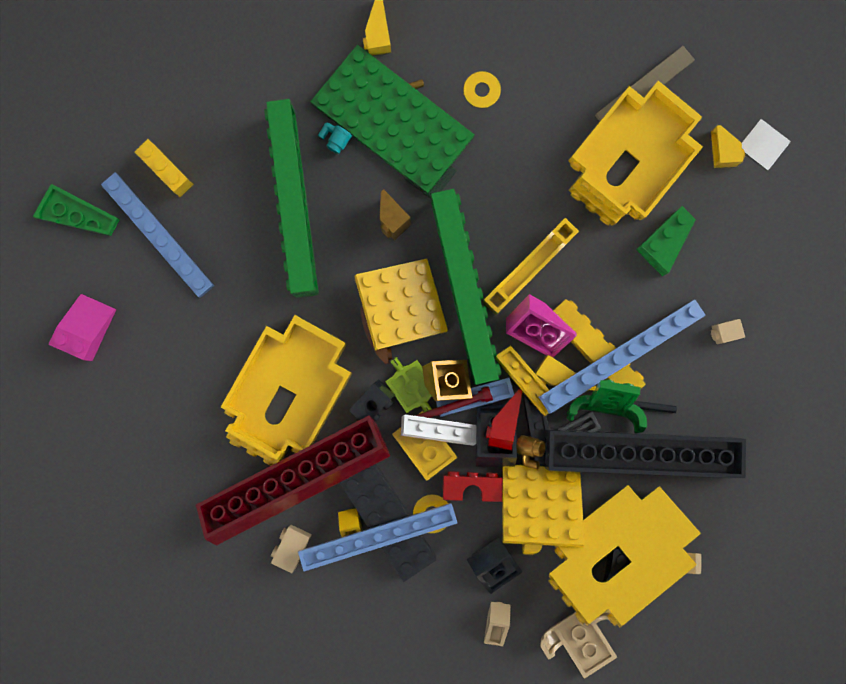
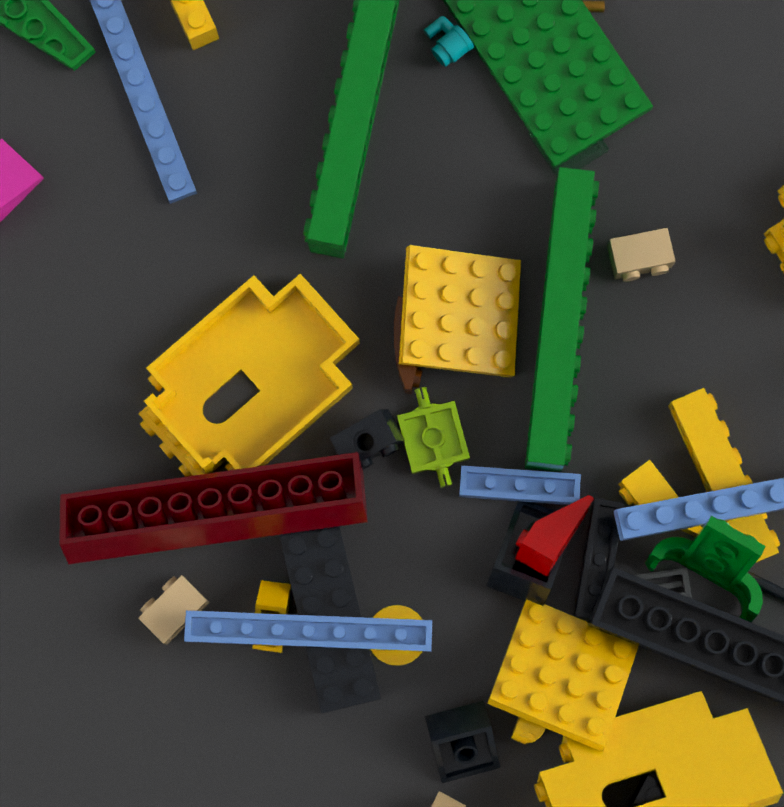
camera: 20 degrees right, 5 degrees down
(392, 217) = (491, 183): pearl gold slope -> none
(426, 454) = (421, 529): yellow plate -> none
(438, 430) = (450, 512): white plate -> none
(447, 380) = (489, 442): pearl gold slope -> none
(455, 484) = (496, 621): red arch -> none
(473, 98) = (681, 63): yellow piece -> none
(482, 395) = (534, 484): dark red piece -> none
(498, 229) = (641, 254): none -> tan brick
(523, 376) = (601, 478): yellow plate -> none
(529, 447) = (575, 583): pearl gold piece -> none
(530, 266) = (668, 324): yellow arch -> none
(539, 327) = (650, 415): dark pink slope -> none

